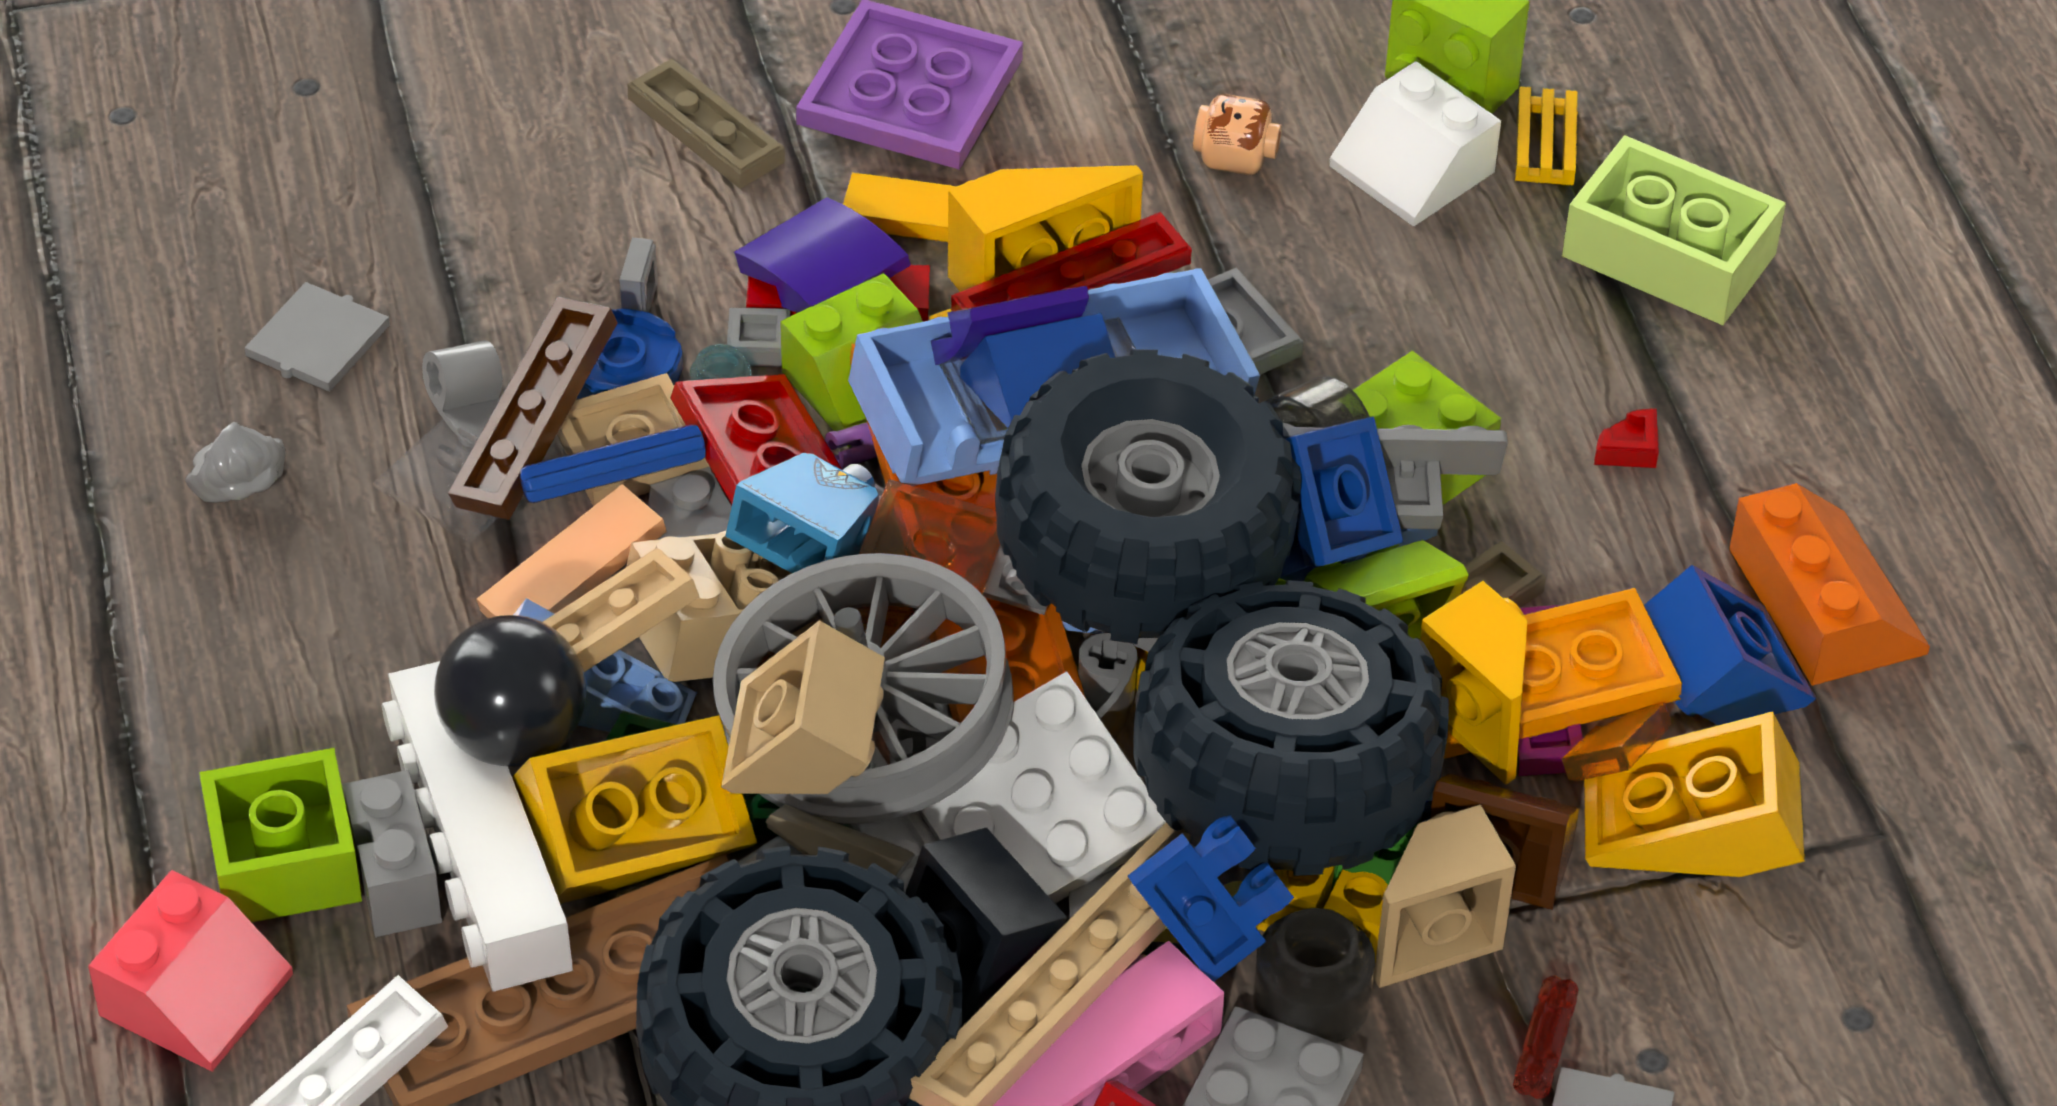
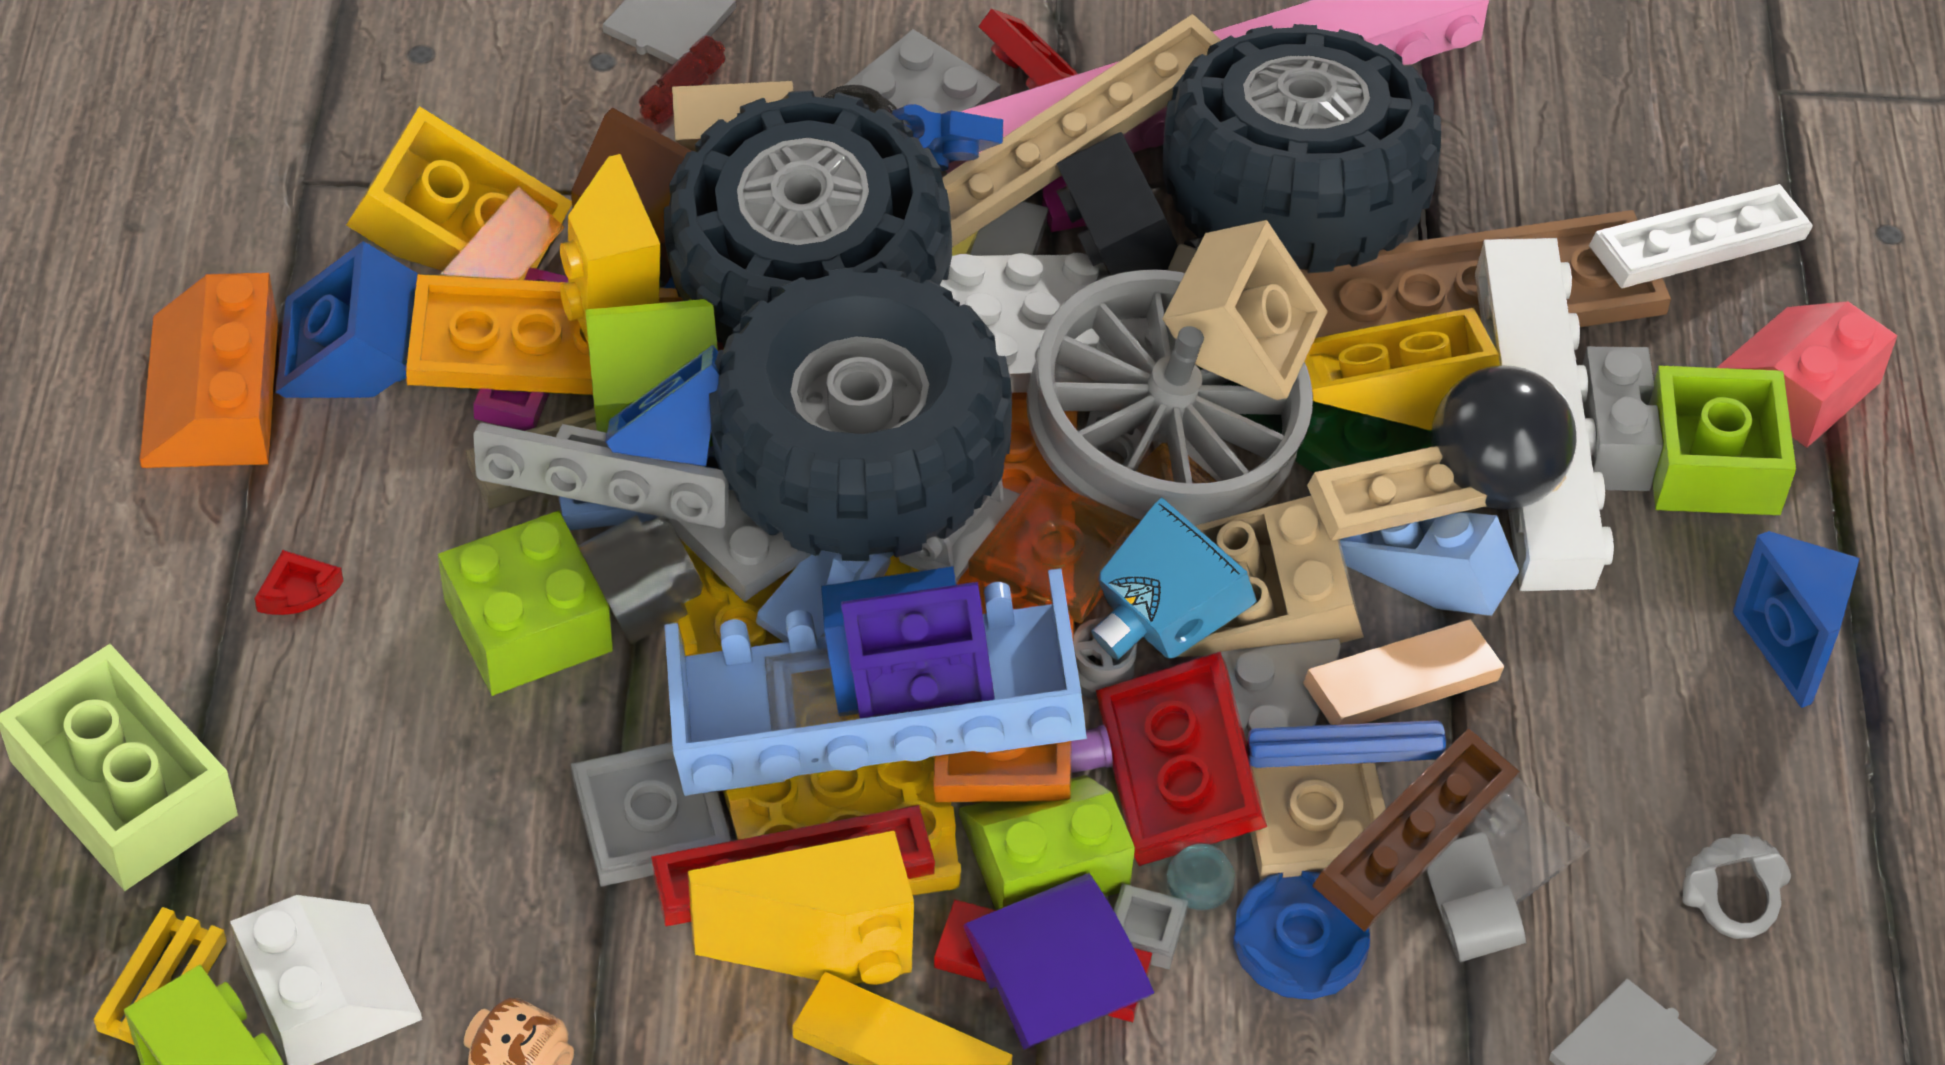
camera: 165 degrees left, 5 degrees up
(188, 666) = (1795, 607): none -> blue slope
(639, 275) = (1266, 1004): light grey tile -> none

